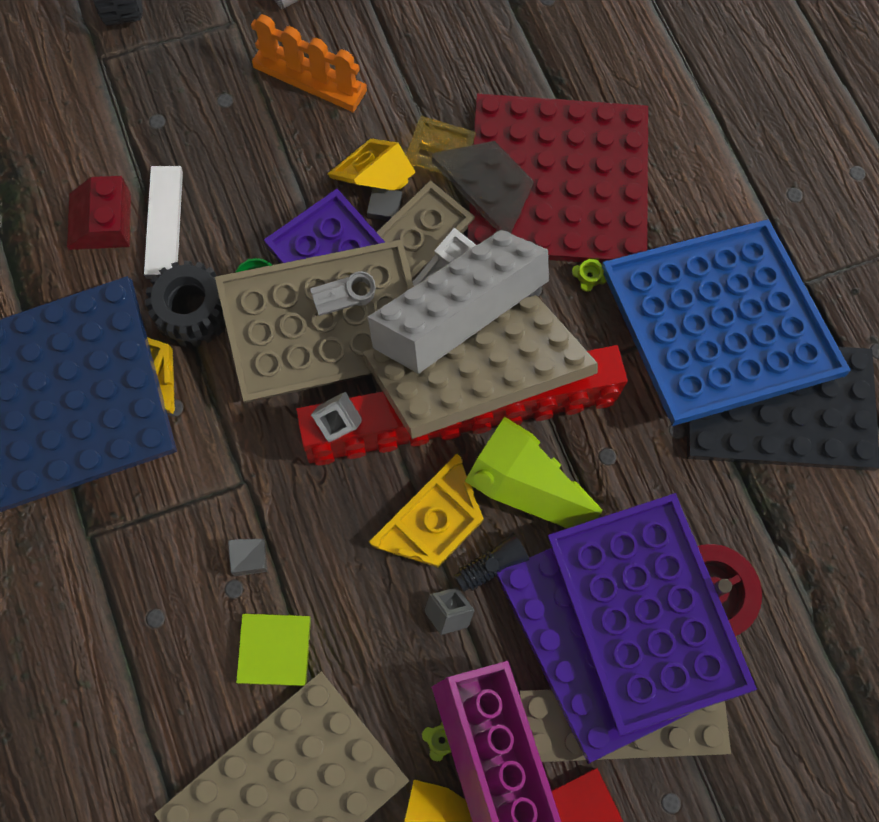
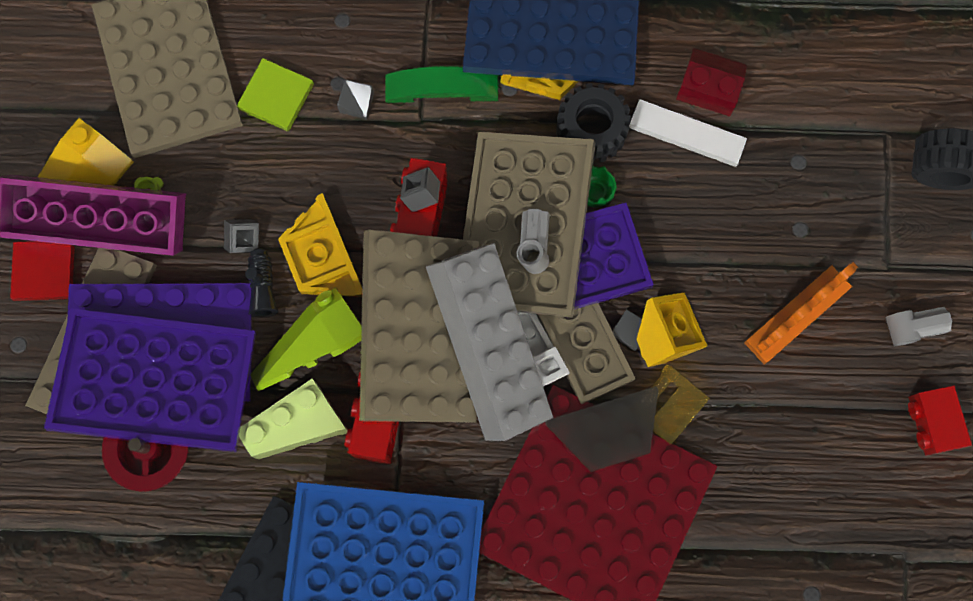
camera: 120 degrees right, 5 degrees up
(200, 479) = (439, 83): none -> green slope
(589, 266) = (488, 482): lime plate -> none
(615, 463) = (292, 422): none -> yellowish green wedge

